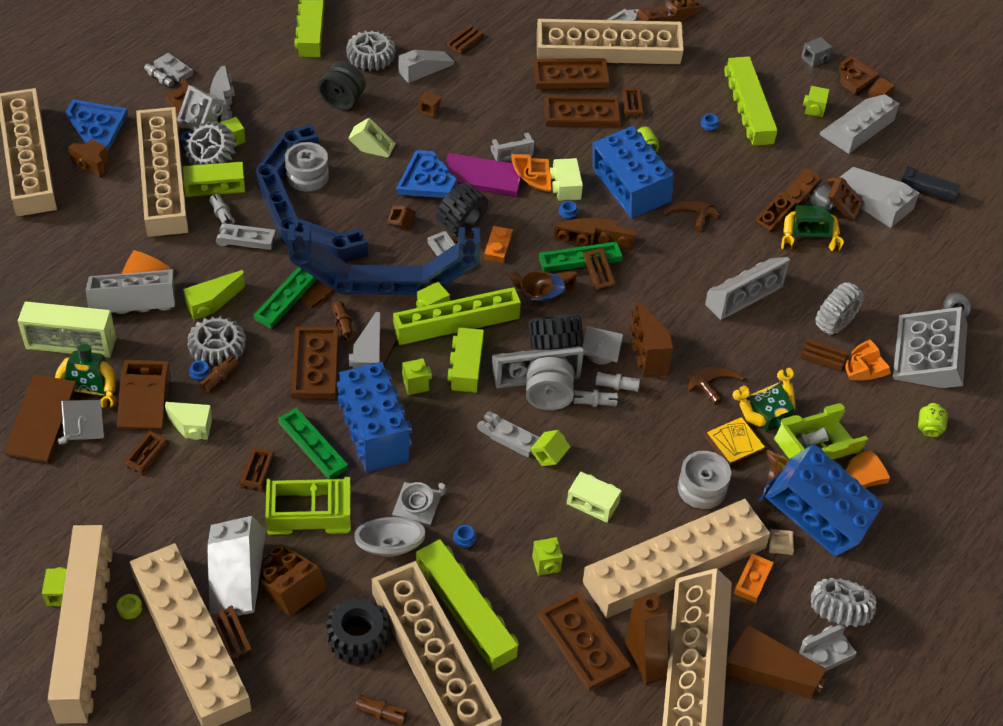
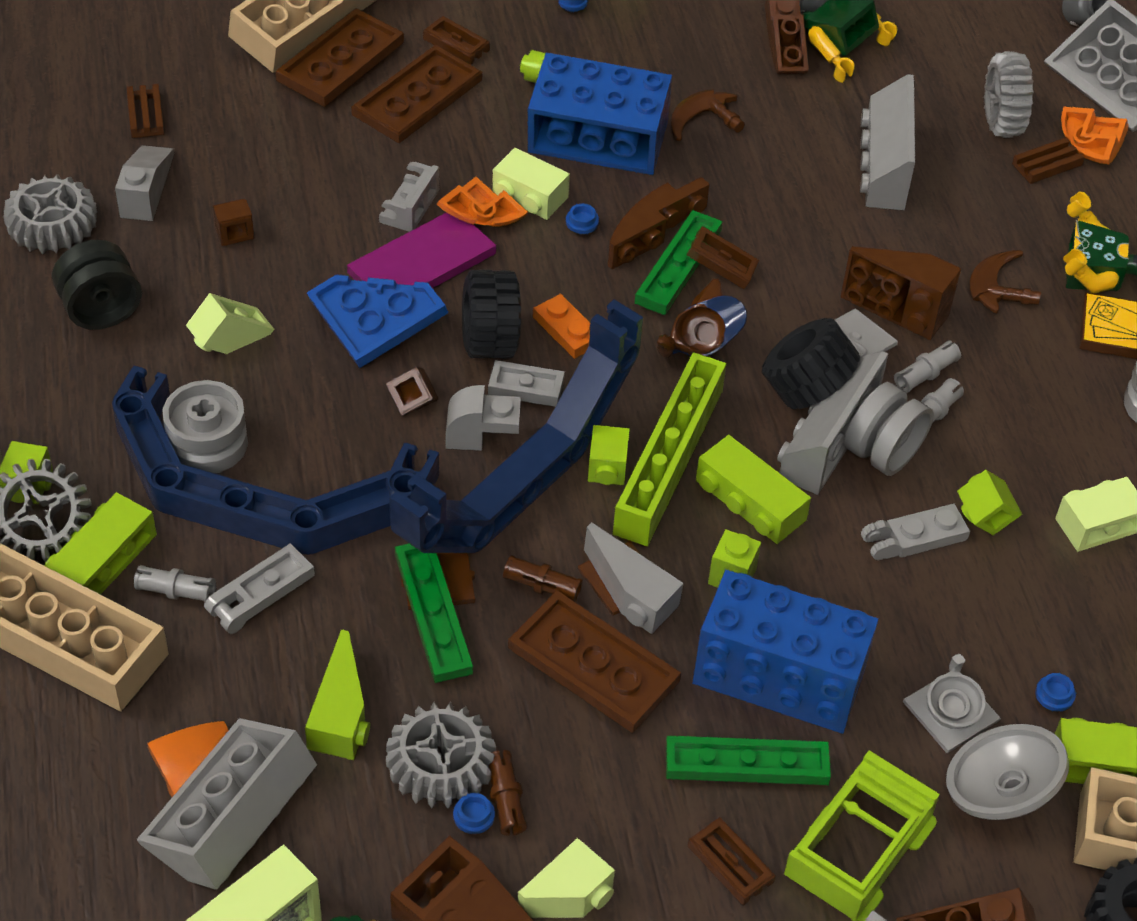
camera: 50 degrees left, 0 degrees up
(403, 244) = (474, 413): none -> light grey brick

